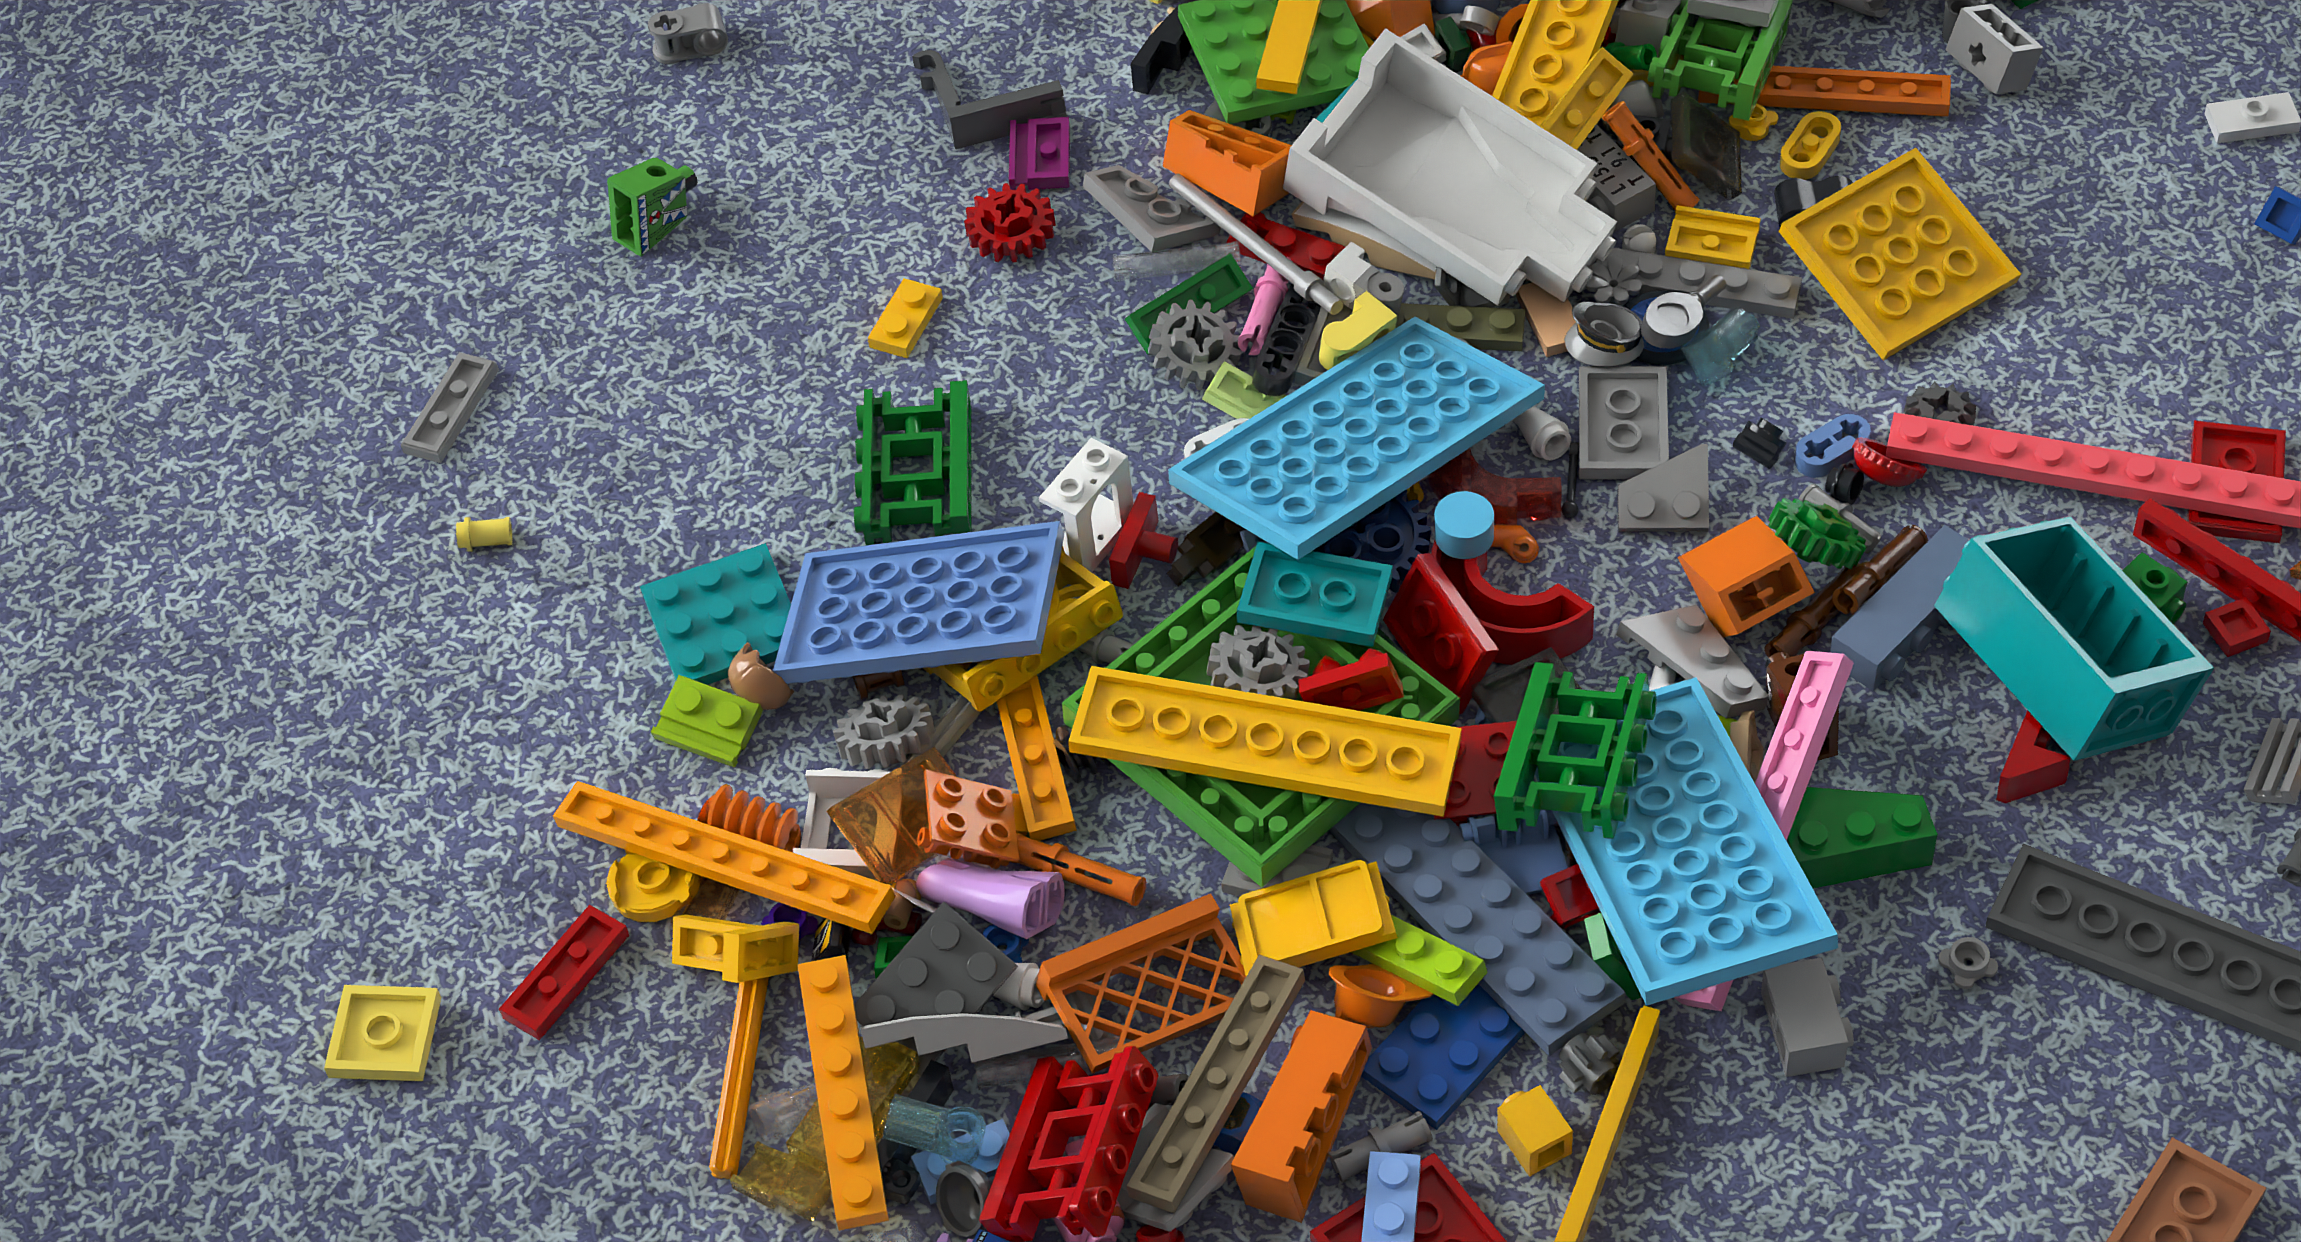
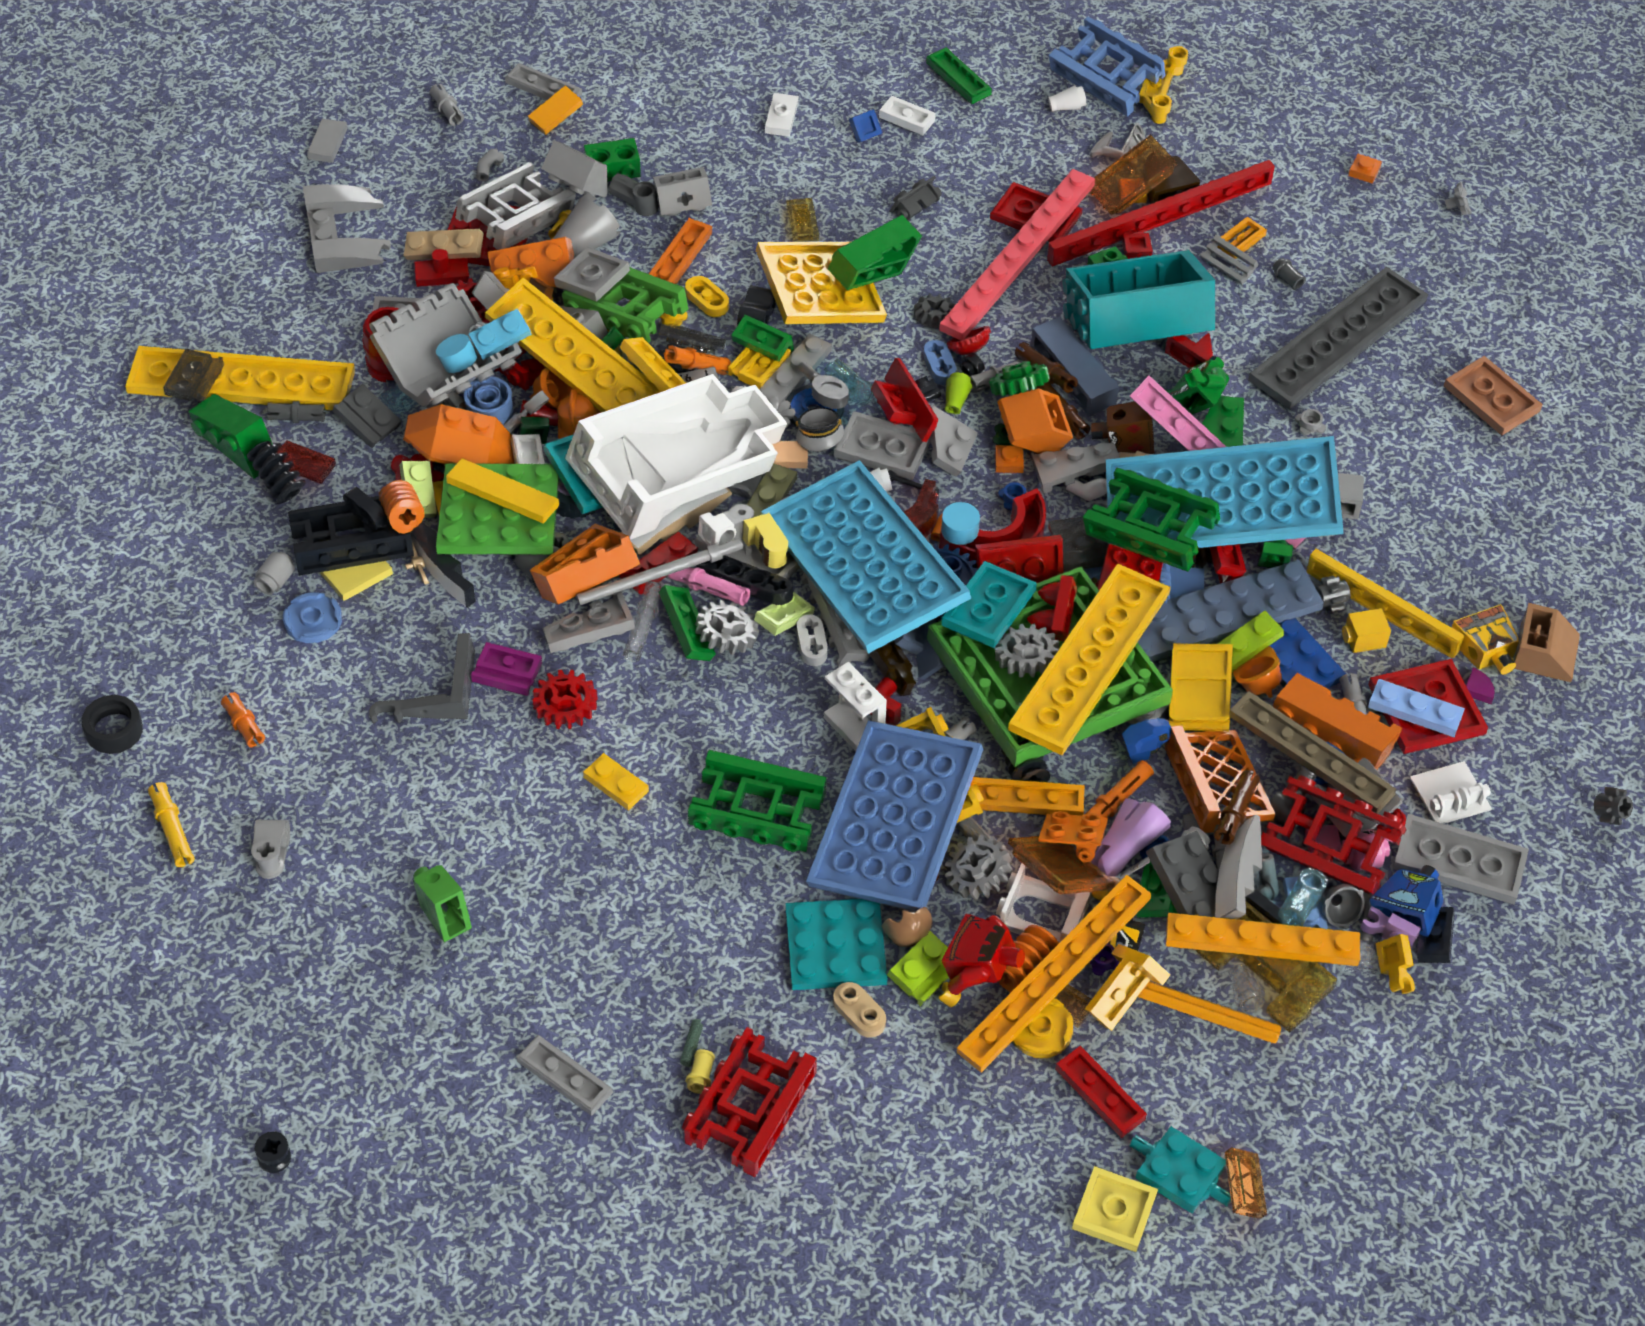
camera: 80 degrees left, 0 degrees up
(275, 182) = (271, 1160): none -> black wheel
(443, 621) = (771, 1115): none -> red fence
(458, 1181) = (1245, 1183): none -> clear orange tile
(465, 1100) = (1181, 1169): none -> teal plate
(532, 514) = (691, 1043): none -> sand green piece
(629, 670) = (857, 1008): none -> tan plate
(722, 754) = (978, 955): none -> red torso
(999, 1097) = (1269, 877): none -> light grey arm
(1071, 1002) = (1234, 814): none -> reddish brown pin
(1182, 871) = (1146, 738): none -> blue rock
(1610, 596) = (1009, 492): none -> blue plate
(1672, 584) = (1009, 459): none -> orange plate
(1703, 405) = (904, 401): none -> red bracket
(1748, 223) = (762, 338): none -> green panel
(1775, 480) = (957, 390): none -> lime cone
(1928, 768) = (1201, 386): none -> green torso
(1975, 289) = (876, 254): none -> green wedge
(2038, 206) = (802, 220): none -> clear yellow plate
(2181, 323) = (921, 192): none -> dark grey hinge

